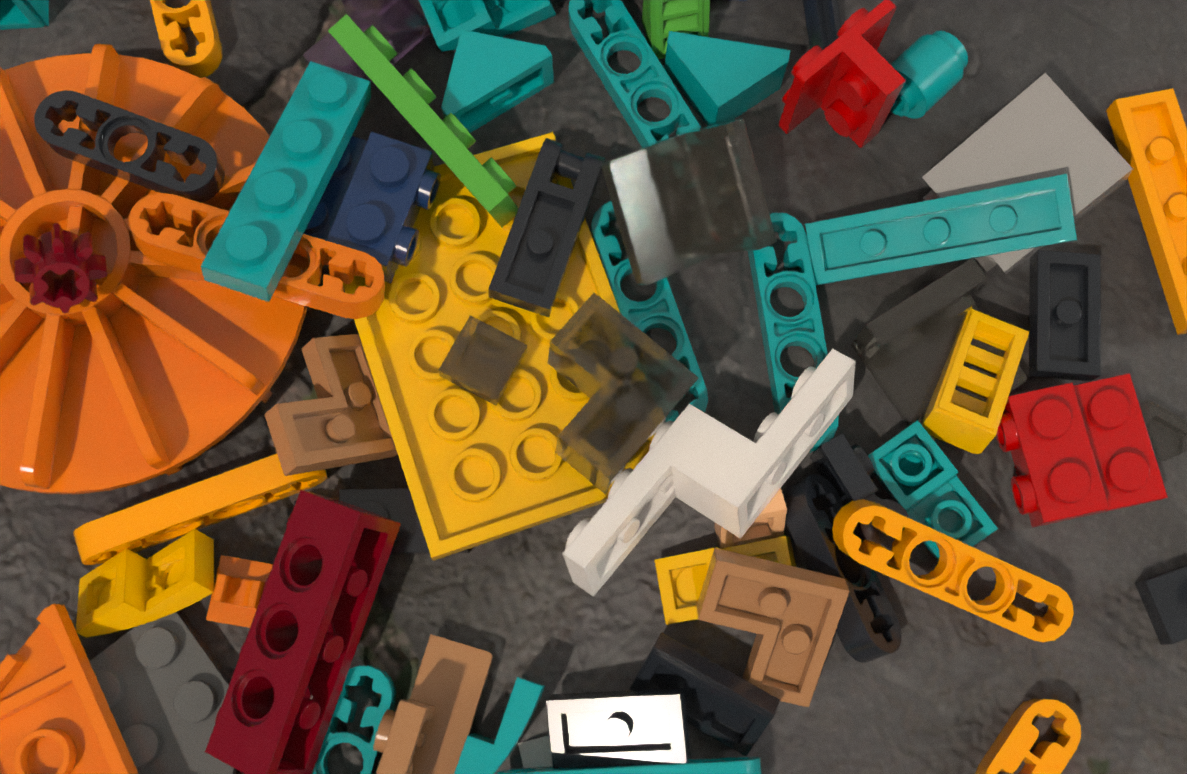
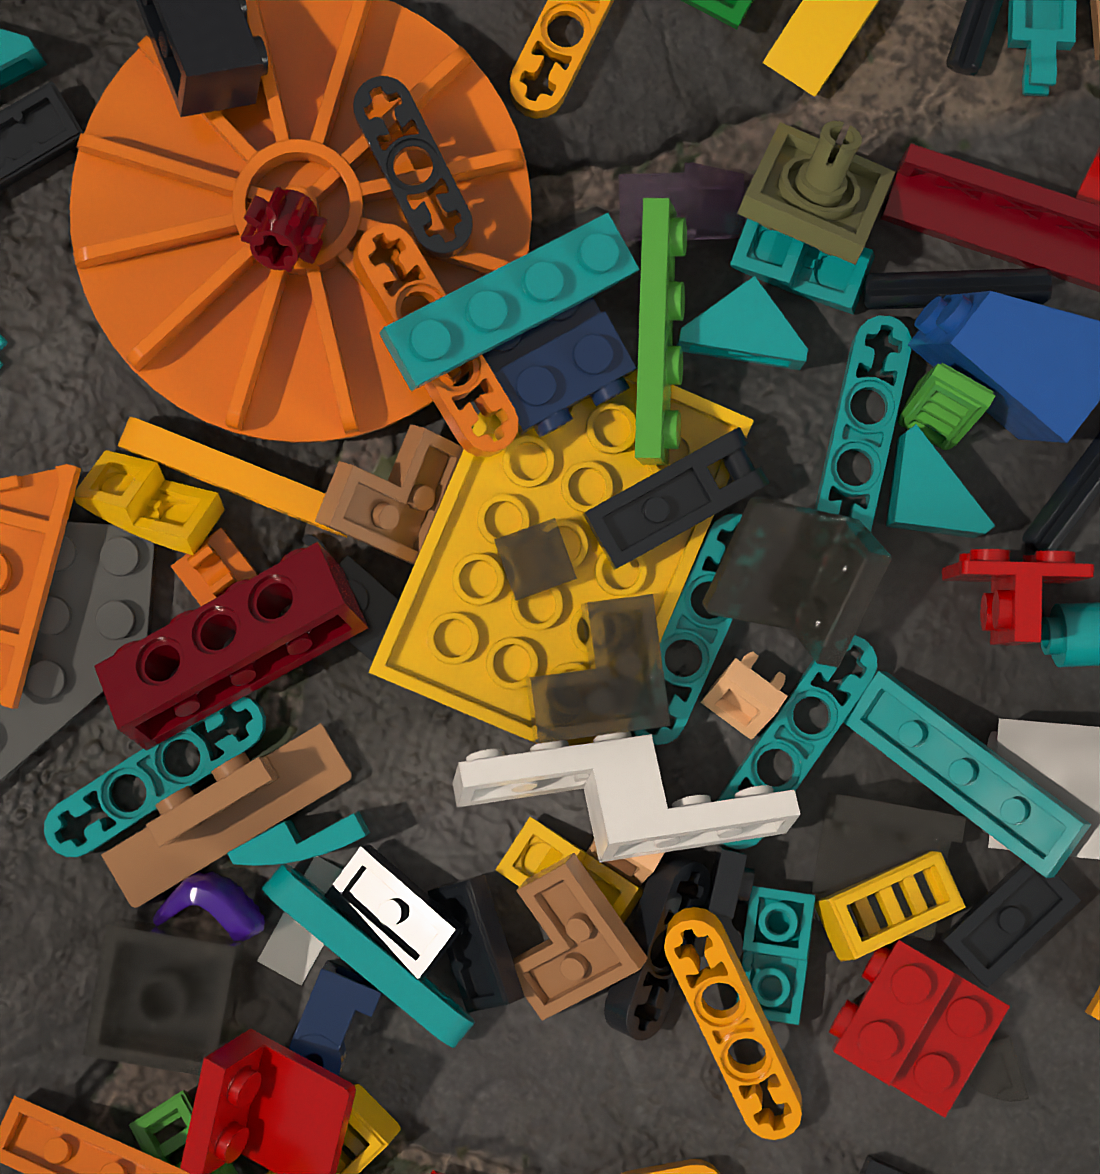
camera: 40 degrees right, 10 degrees up
(730, 328) = (745, 697): none -> light nougat tile

